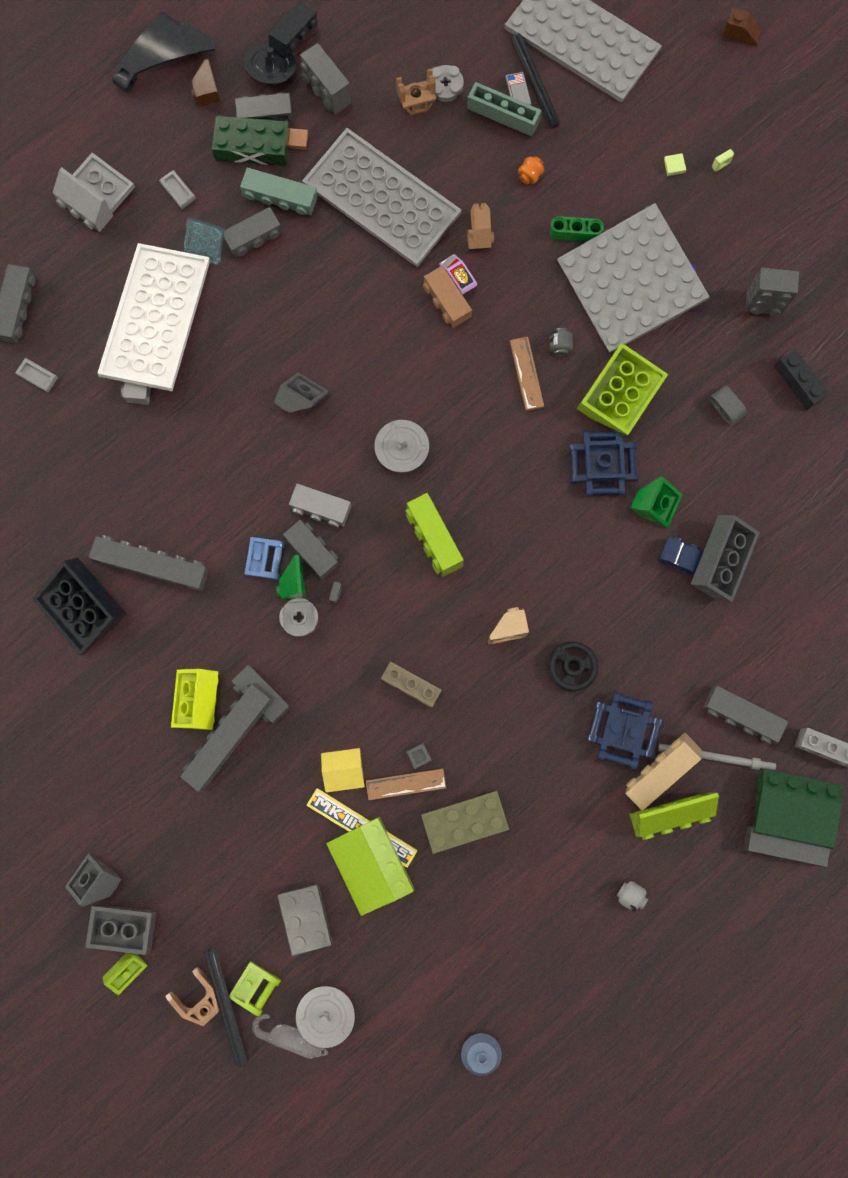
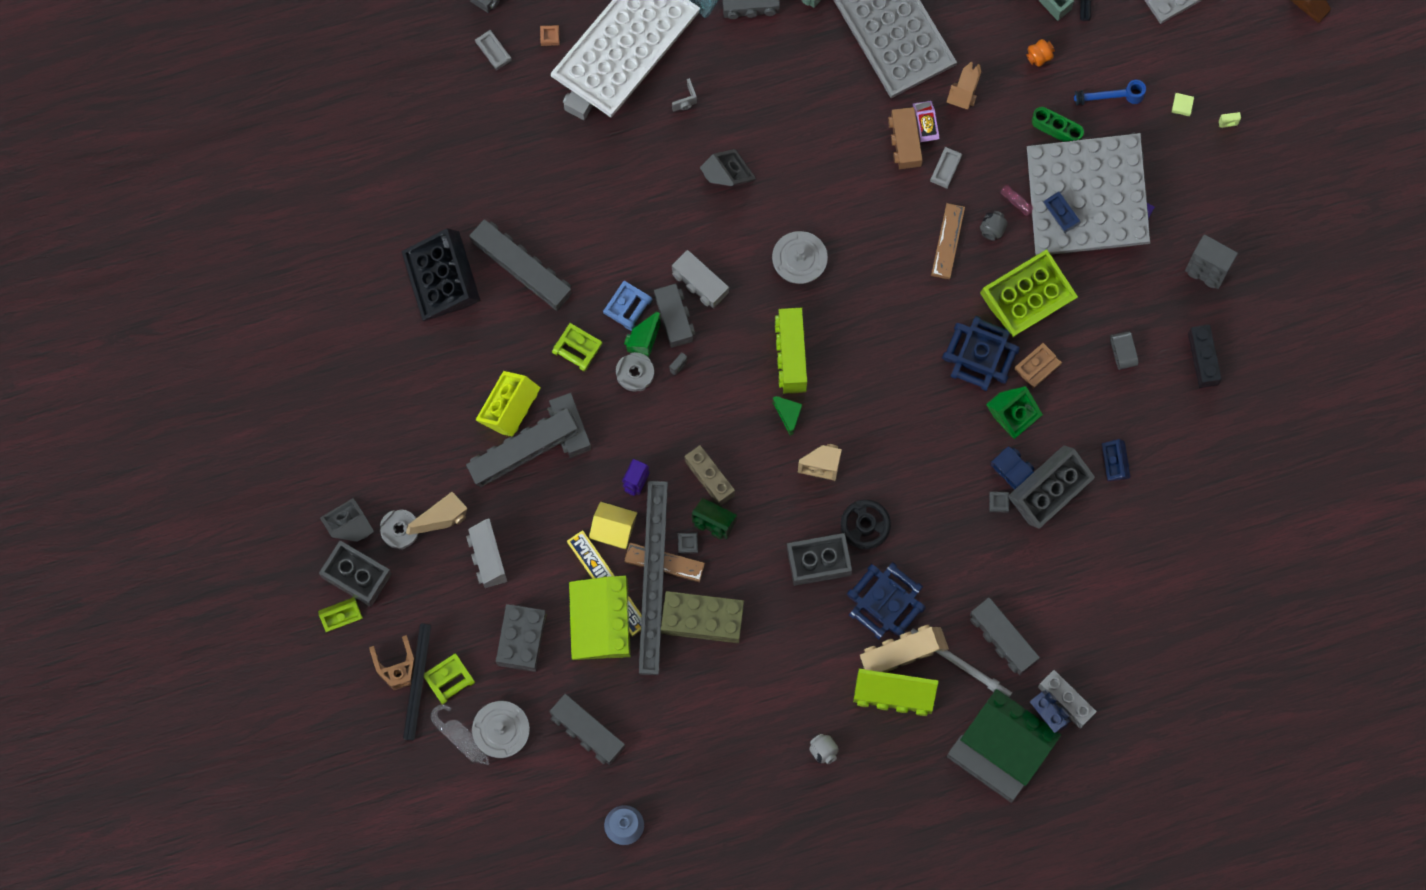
camera: 25 degrees right, 5 degrees down
(83, 340) = (549, 35): none -> nougat tile
(134, 869) = (388, 529): none -> light grey plate
(179, 834) = (440, 516): none -> tan slope
(235, 348) = (686, 103): none -> light grey bracket
(235, 611) = (579, 341): none -> lime plate
(237, 853) = (486, 554): none -> light grey slope
(344, 718) = (635, 477): none -> dark purple brick
(403, 806) = (653, 578): none -> dark grey plate
(406, 978) = (587, 729): none -> dark grey brick
(433, 723) = (713, 518): none -> dark green slope
(455, 593) = (788, 412): none -> green slope
(494, 308) = (946, 167): none -> light grey tile
(547, 719) = (819, 559): none -> dark grey brick
(570, 310) = (1016, 200): none -> clear pink axle
(618, 303) = (1061, 212): none -> dark blue plate
(629, 163) = (1080, 97): none -> blue piece
(659, 452) = (1038, 365): none -> medium nougat plate
(681, 591) = (998, 502): none -> dark grey tile
(766, 507) = (1116, 460): none -> dark blue slope
(827, 771) = (1053, 715): none -> dark blue plate

